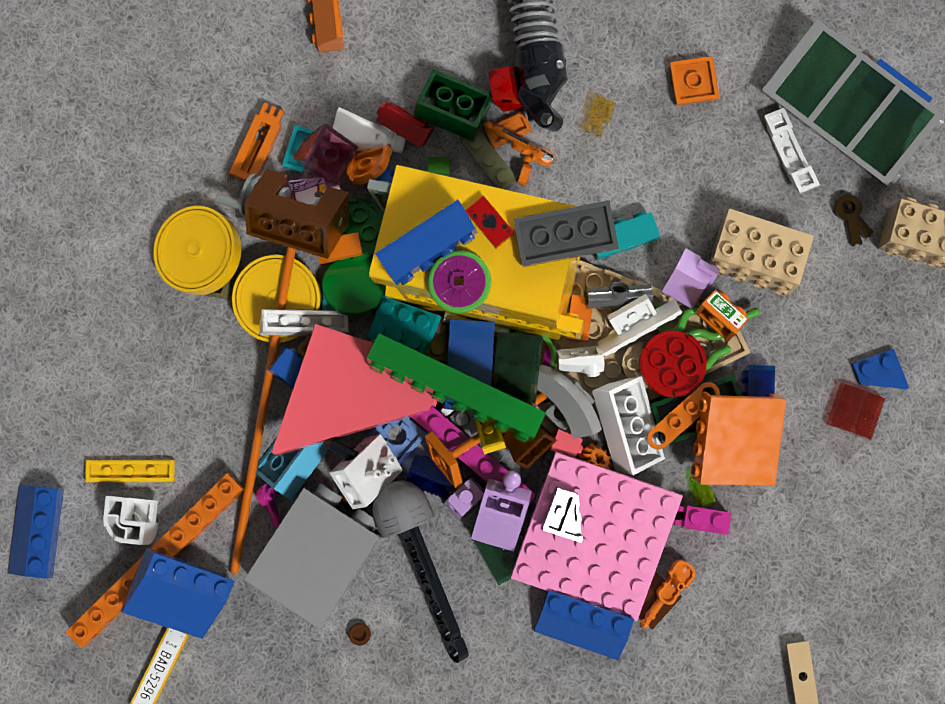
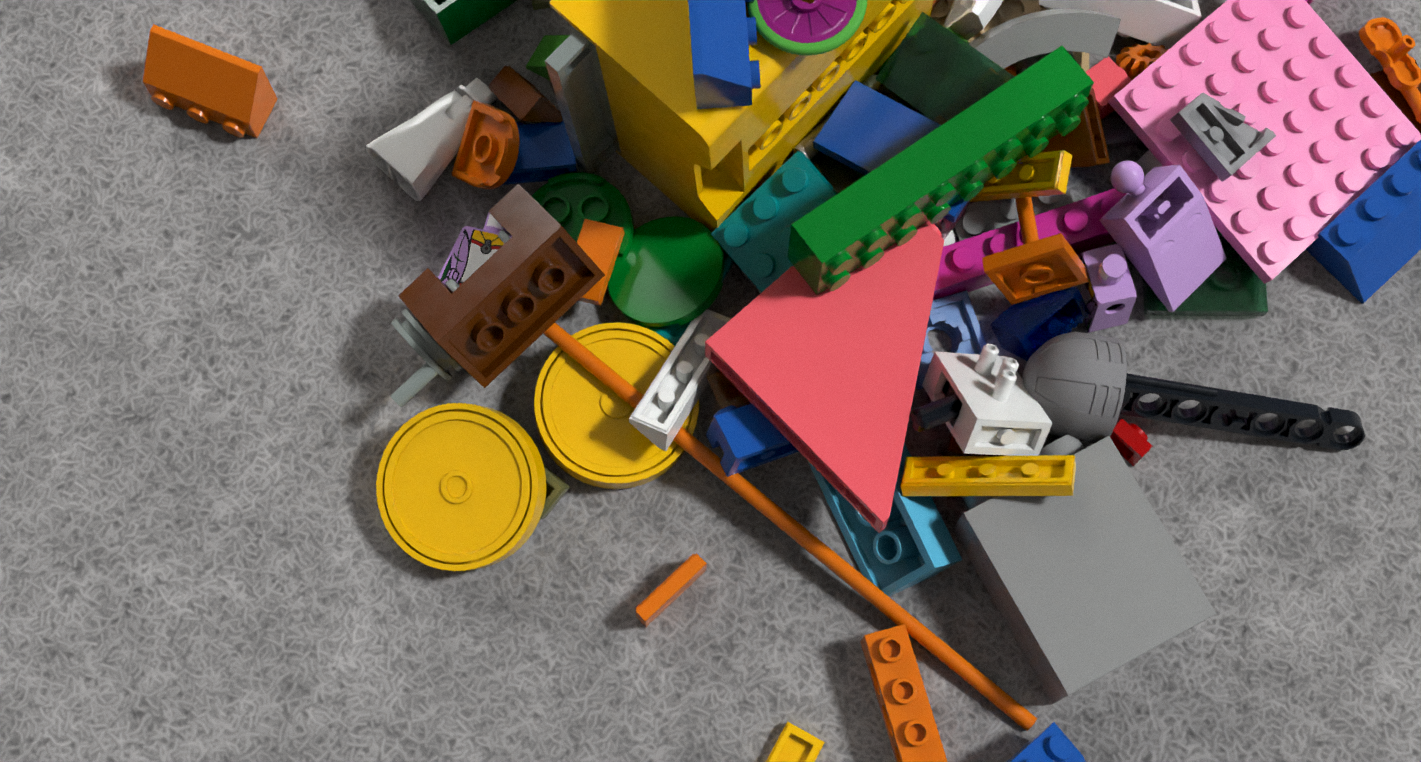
camera: 65 degrees left, 10 degrees down
(204, 373) = (670, 589): none -> orange tile
(254, 152) = (354, 320): orange hinge -> none
(266, 497) = (933, 600): dark pink plate -> none
(297, 137) = (392, 245): teal plate -> none
(326, 153) = (428, 199): clear pink slope -> none
(328, 491) = (989, 476): none -> yellow tile
(359, 634) = (1237, 572): reddish brown tile -> none
(395, 550) = (1130, 441): none -> red plate
(404, 123) = (453, 66): red window -> none
(407, 157) = (523, 97): none -> reddish brown slope

